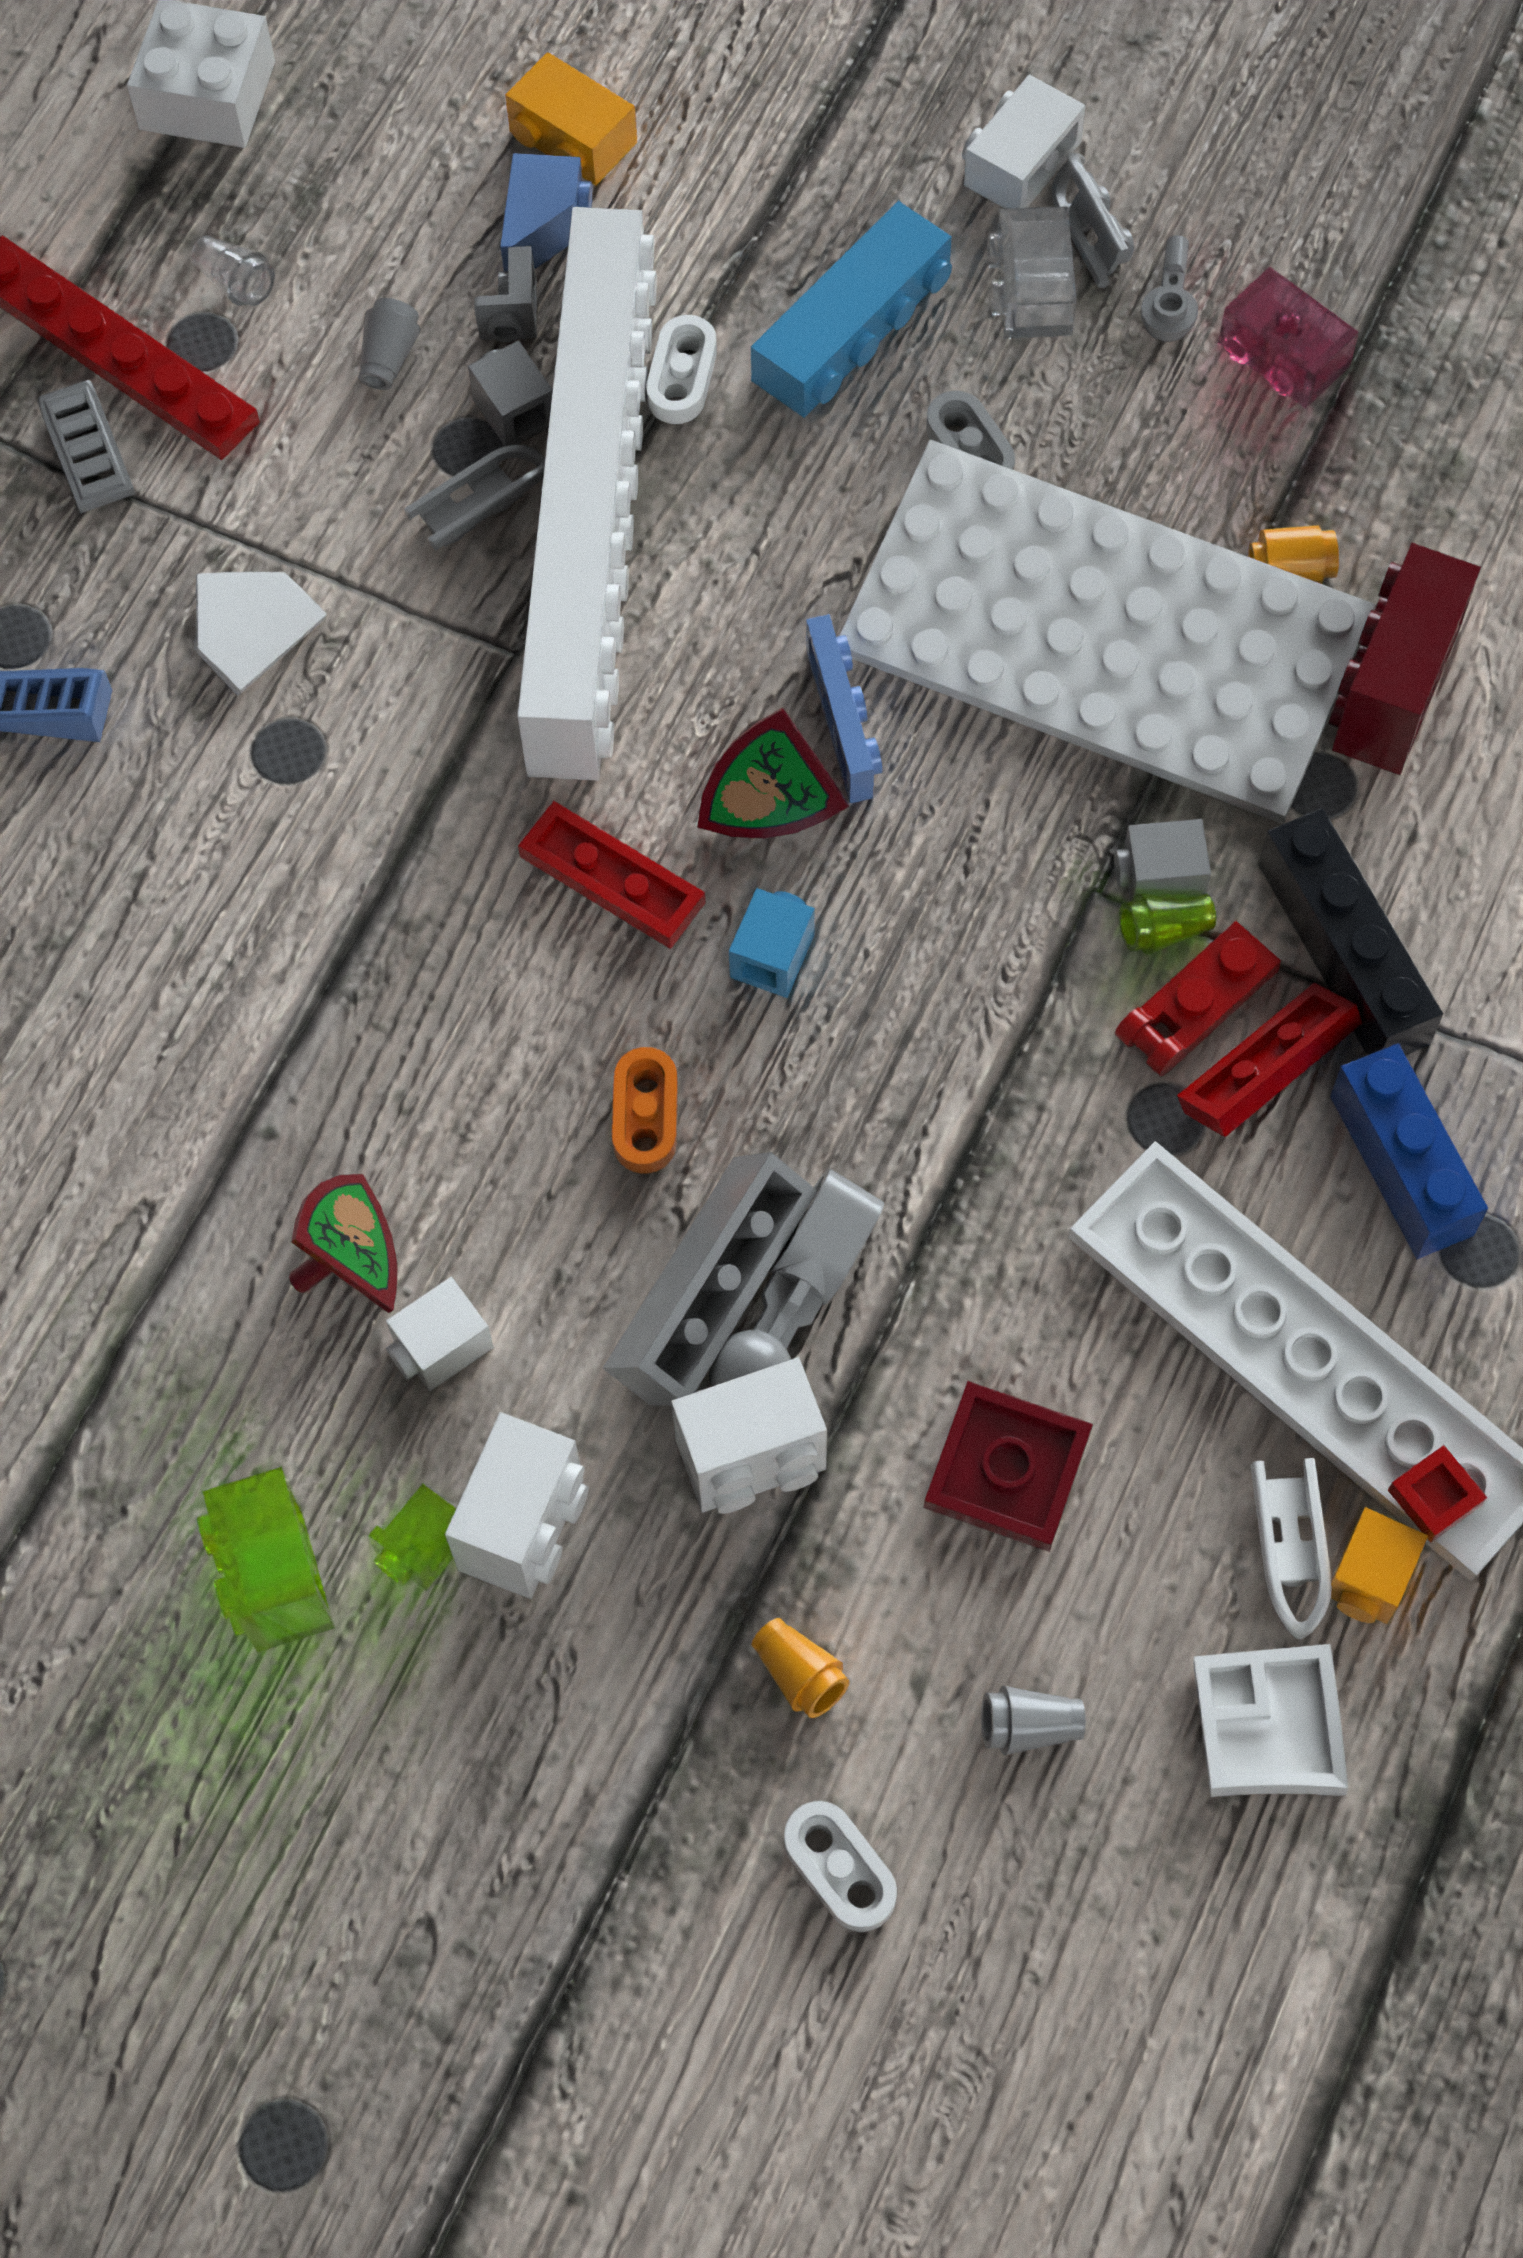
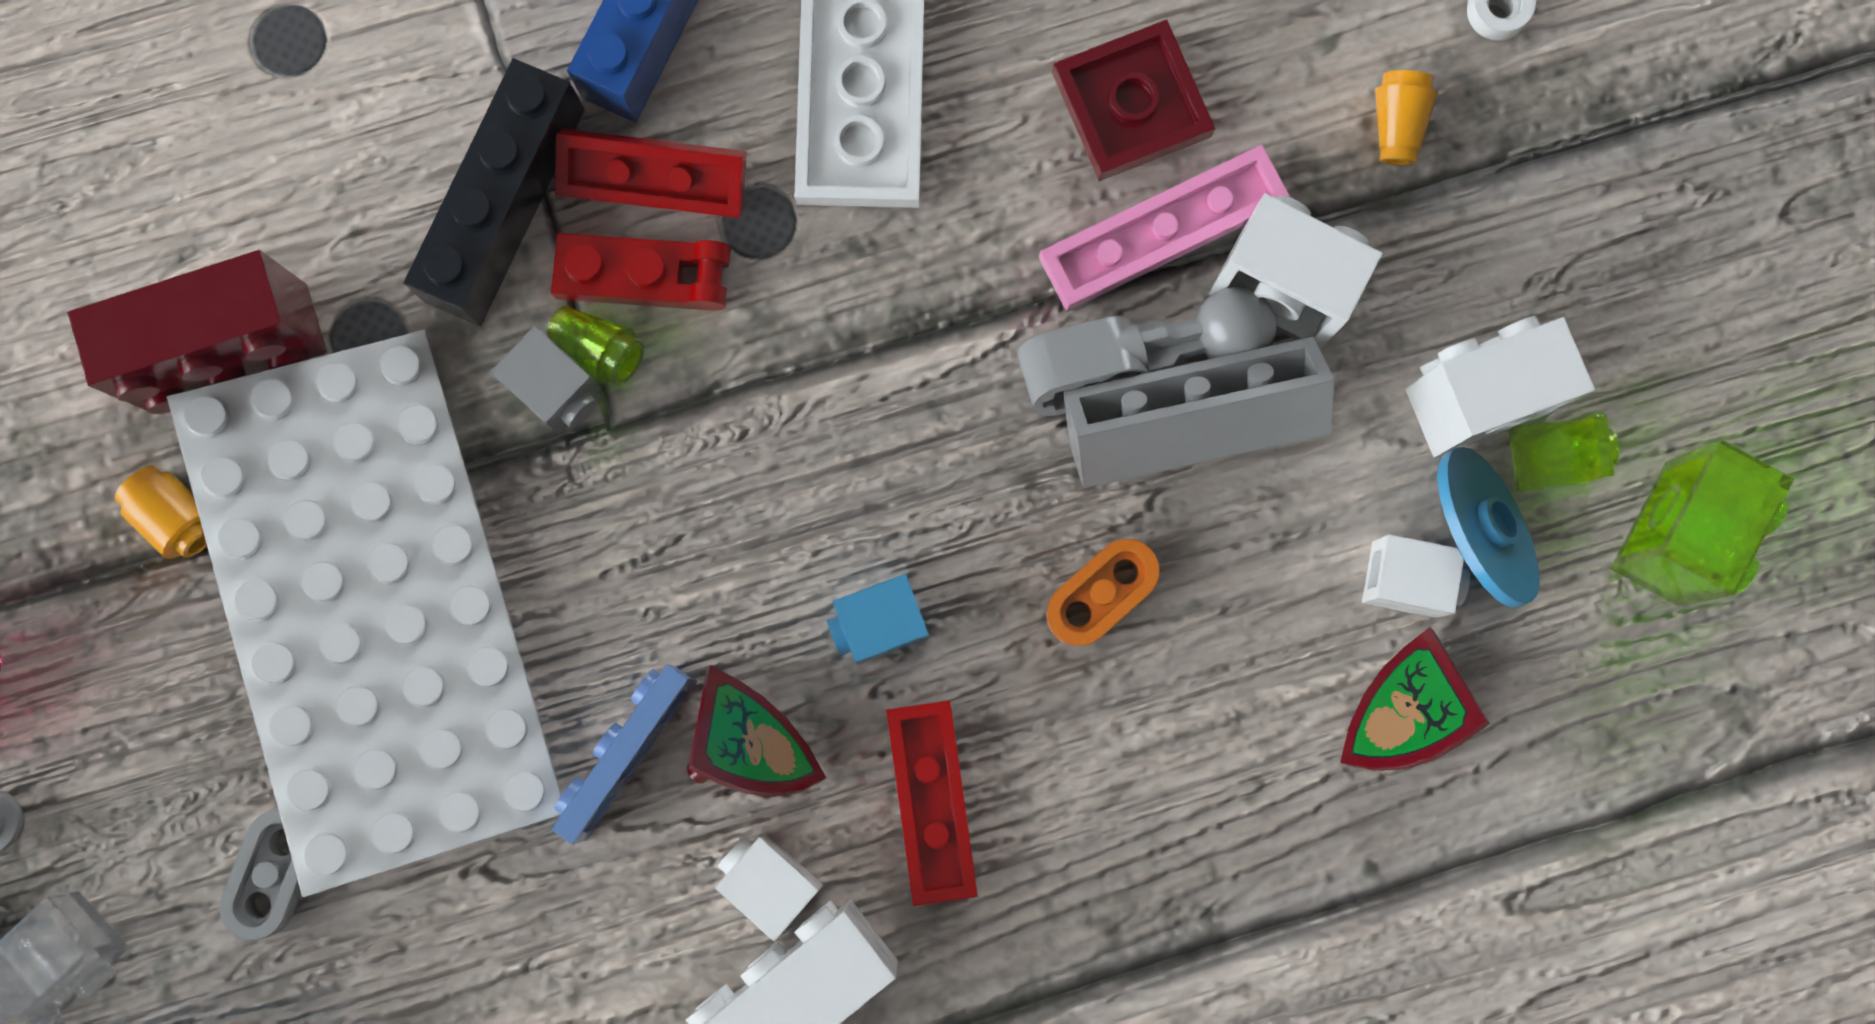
camera: 135 degrees left, 15 degrees up
(417, 1415) = (1488, 527): none -> dark azure piece
(660, 725) = (766, 884): none -> white brick
(880, 1399) = (1160, 228): none -> bright pink plate

